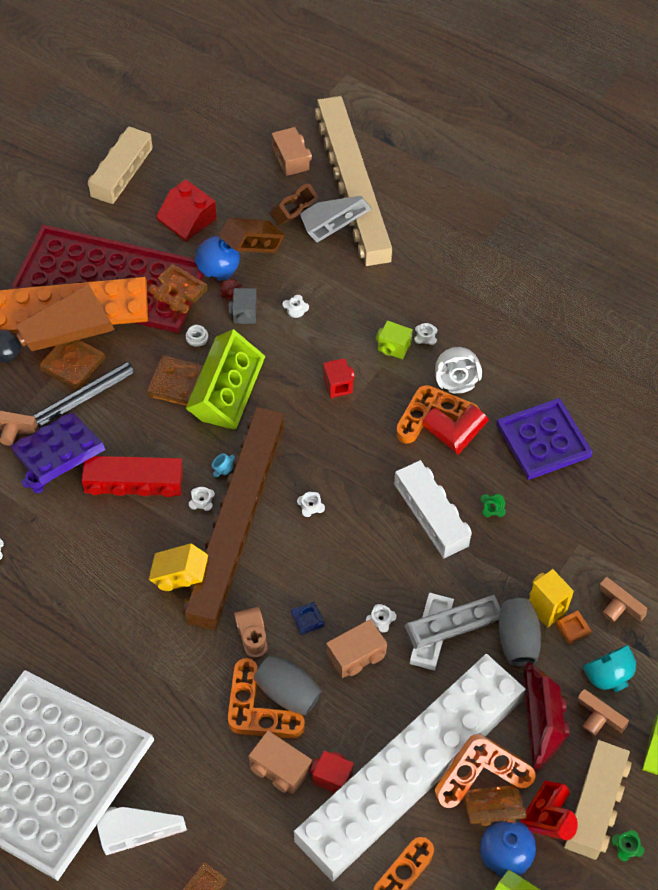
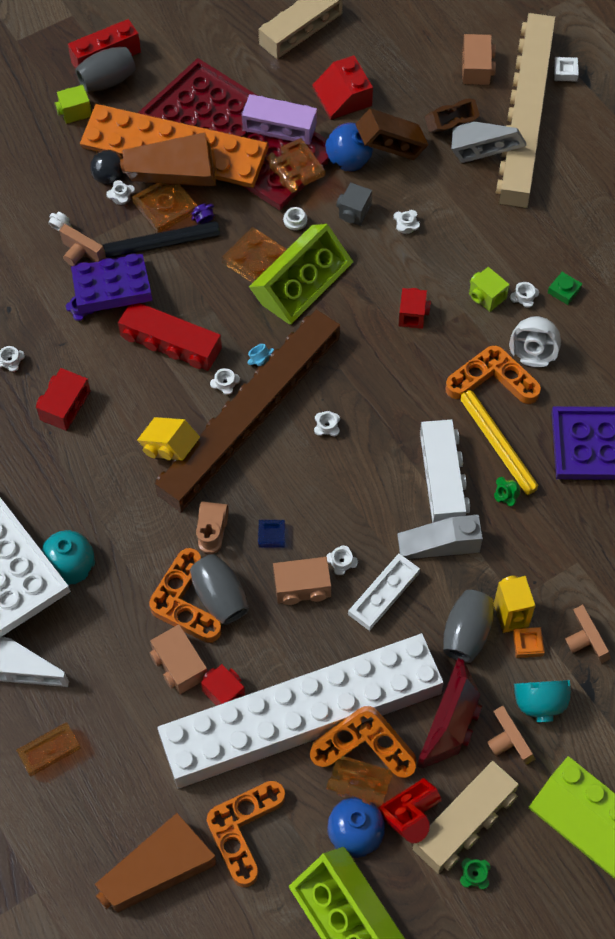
camera: 25 degrees right, 5 degrees up
(28, 369) = (120, 193): none -> white plate
(59, 568) = (63, 399): none -> red brick
(112, 358) = (203, 213): none -> dark purple plate
(134, 705) = (70, 555): none -> teal cylinder
(144, 253) = (279, 119): none -> lavender brick
(227, 288) = (346, 178): clear red plate -> none
(369, 137) = (565, 69): none -> white plate
(453, 621) = (407, 590): light grey tile -> none
(455, 434) = (506, 405): red brick -> none
(456, 318) = (564, 288): none -> green plate
(459, 565) = (442, 538): none -> light grey slope
(465, 466) = (499, 442): none -> yellow axle

